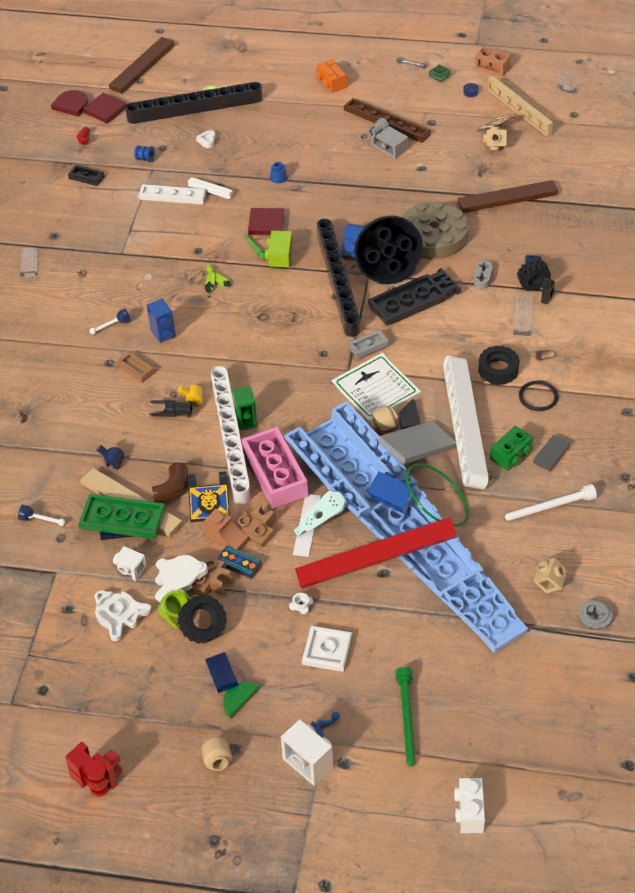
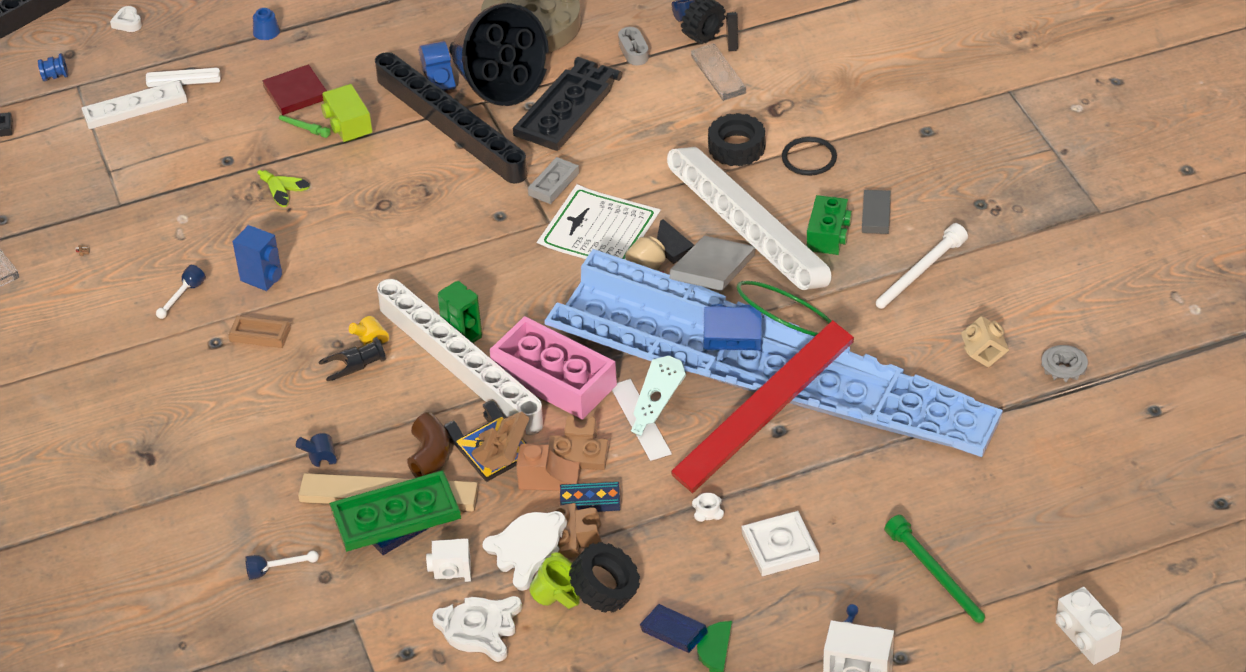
camera: 30 degrees left, 5 degrees down
(205, 502) = (501, 445): none -> medium nougat plate

